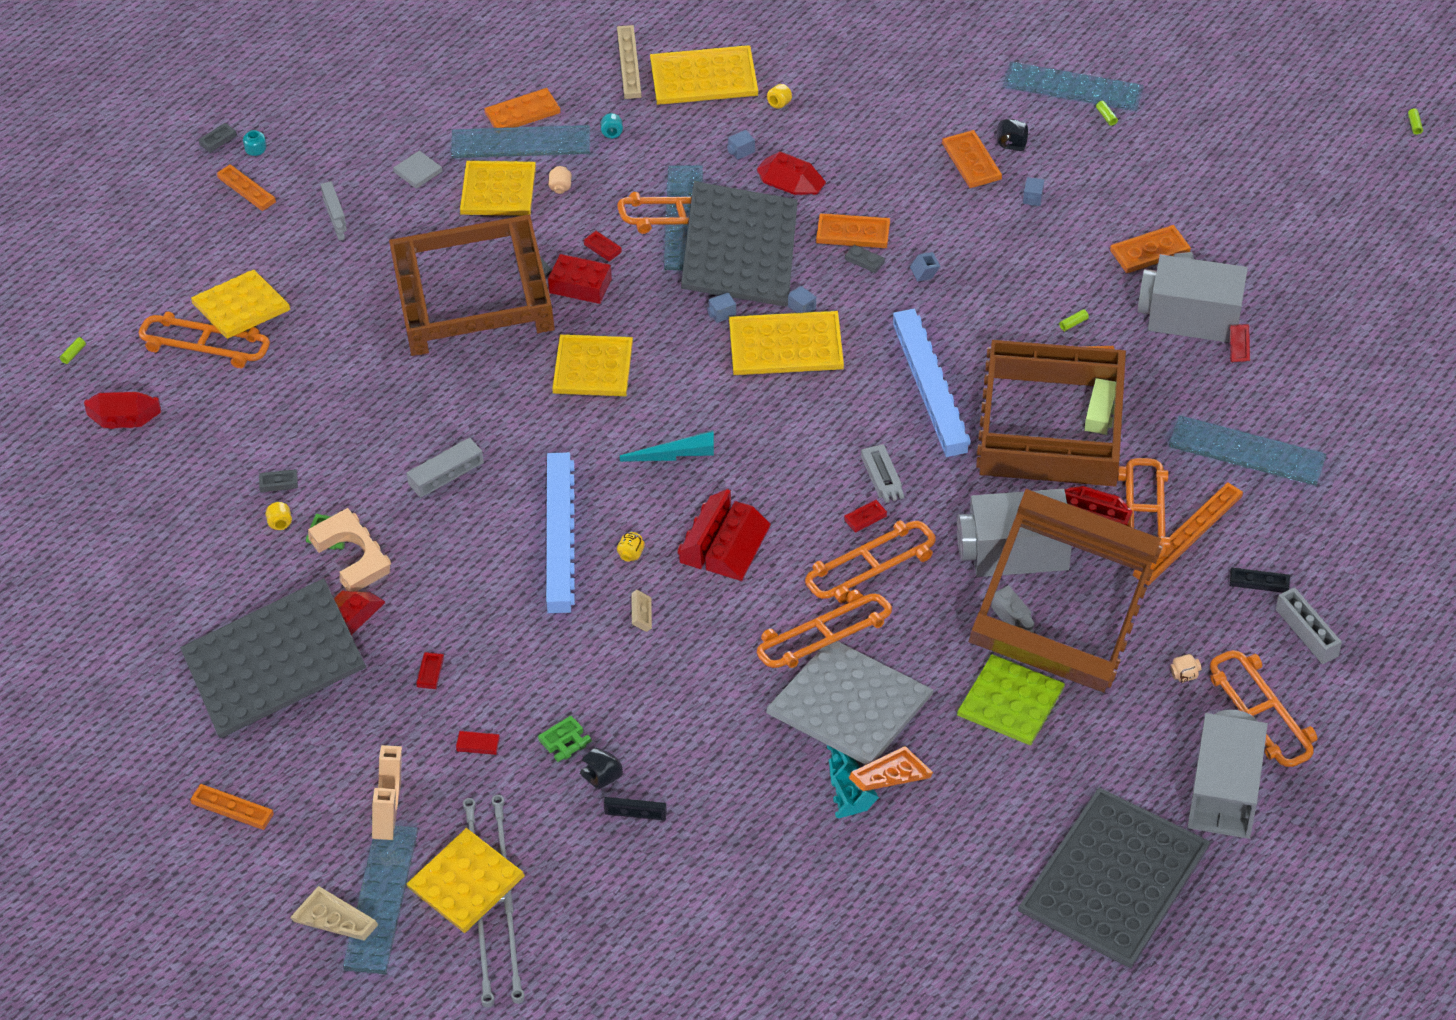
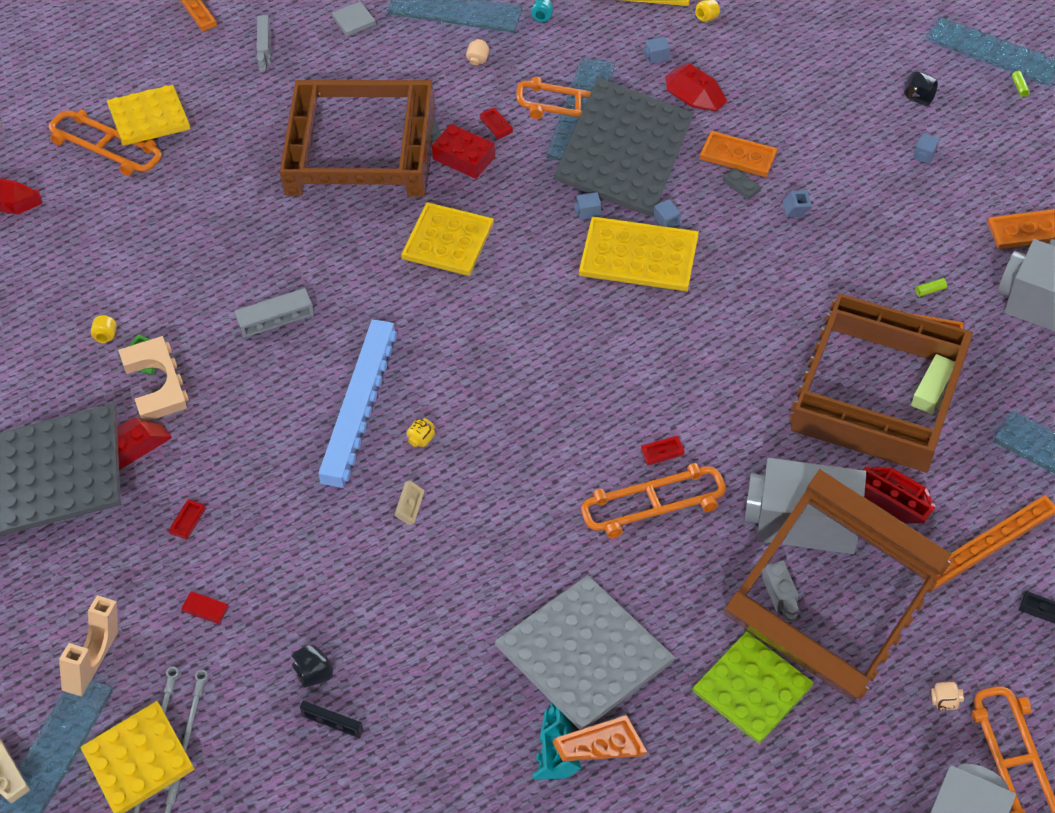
camera: 15 degrees right, 5 degrees up
(278, 480) = (117, 293): dark grey plate -> none
(498, 188) = (419, 49): yellow plate -> none
(561, 734) = (287, 618): bright green plate -> none
(695, 445) = (516, 340): teal wedge -> none
(705, 529) = (499, 432): red slope -> none
(737, 541) = (526, 450): red slope -> none
(854, 599) = (625, 539): orange bar -> none
(880, 470) = (693, 405): light grey hinge -> none
(931, 383) = (768, 324): light blue brick -> none
(971, 159) = (874, 104): orange plate -> none
(1125, 473) = (941, 463): orange bar -> none

